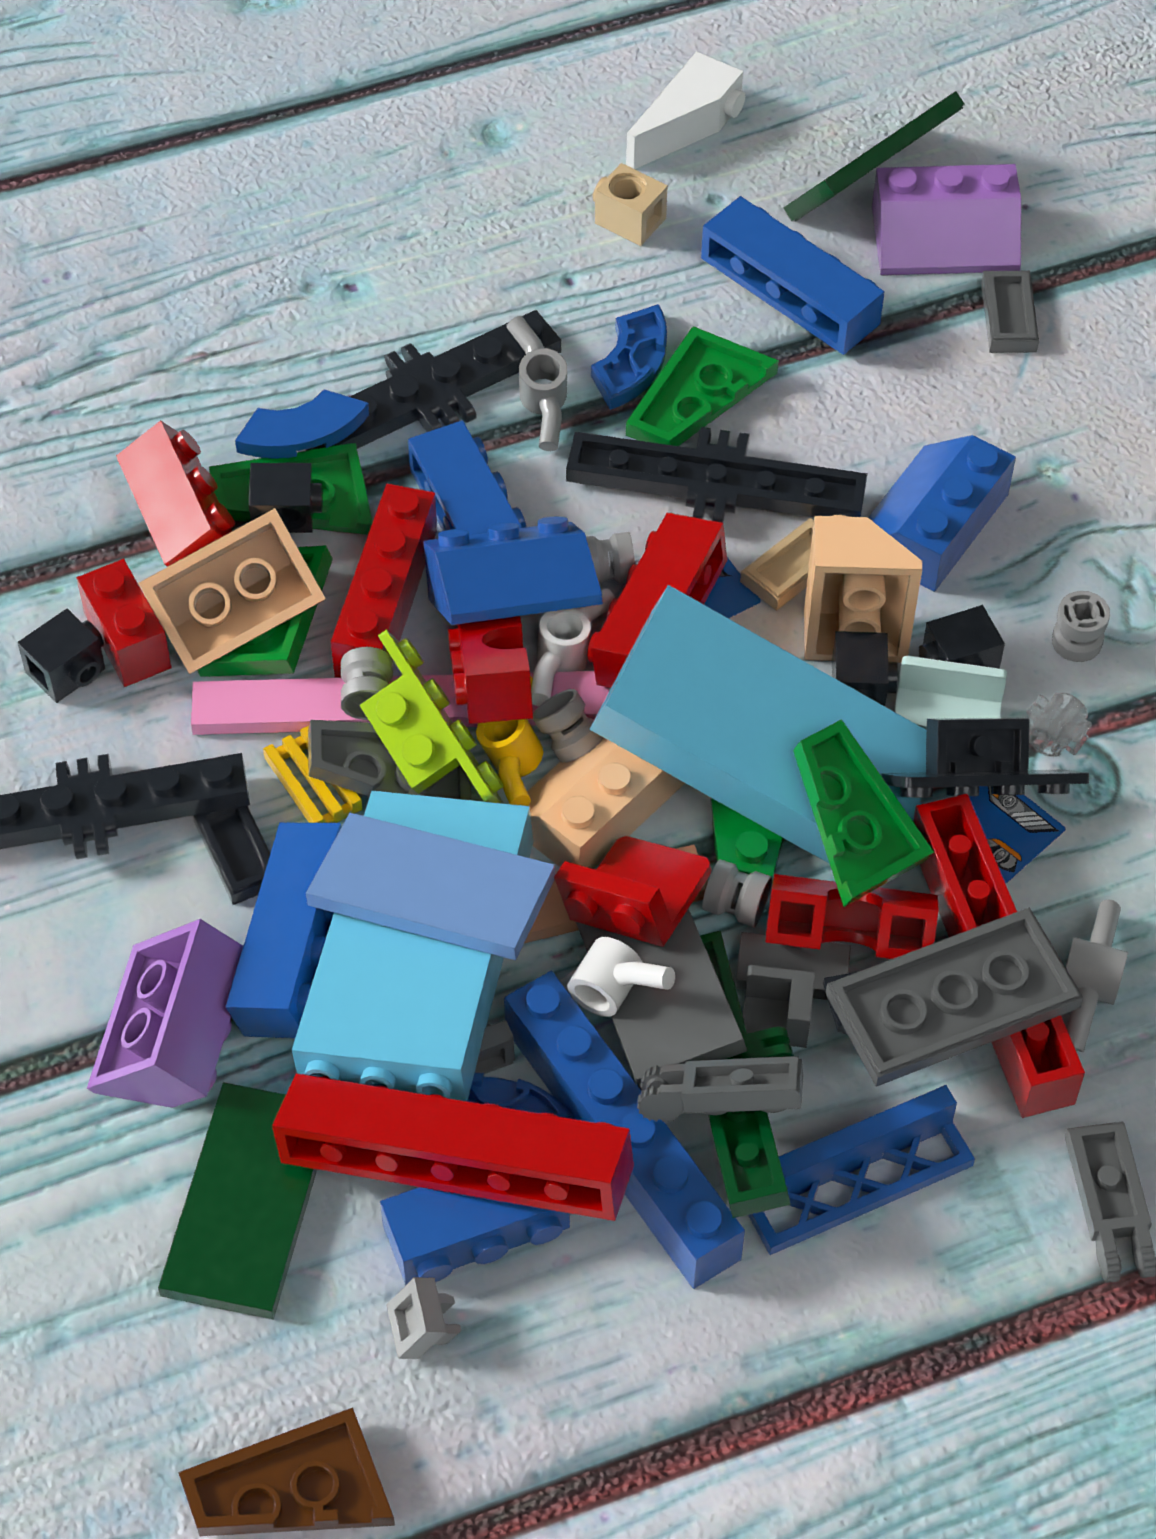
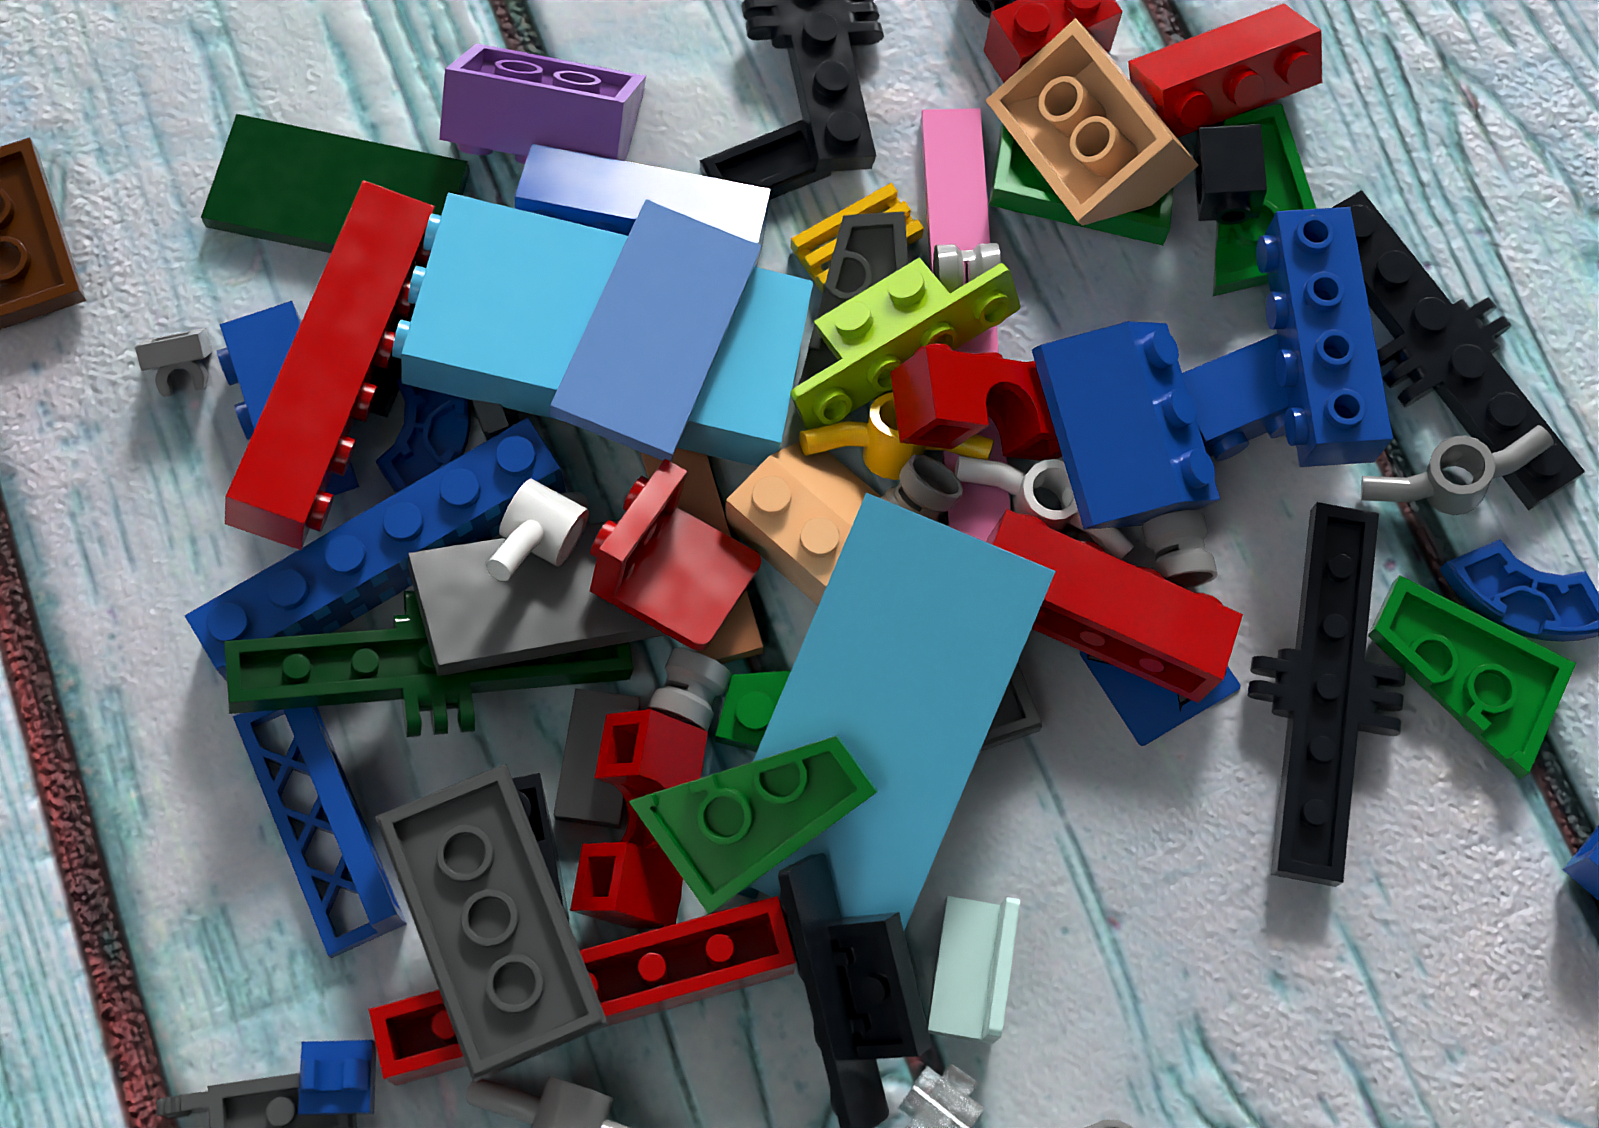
camera: 85 degrees right, 15 degrees up
(318, 422) = (1336, 177): blue tile -> none
(386, 571) = (1097, 287): red brick -> none
(442, 435) = (1324, 338): none -> blue brick
(721, 1087) = (370, 644): dark grey hinge -> none
(779, 1000) = (534, 736): dark grey panel -> none
(782, 569) = (1199, 786): tan tile -> none
(858, 584) = (1106, 821): light nougat slope -> none
(863, 664) = (1015, 856): black brick -> none
(945, 502) = (1297, 975): blue slope -> none
(964, 639) = (1059, 989): black brick -> none
(1014, 829) = (777, 1038): blue sticker -> none
(1080, 1125) = (337, 1077): none -> blue tile

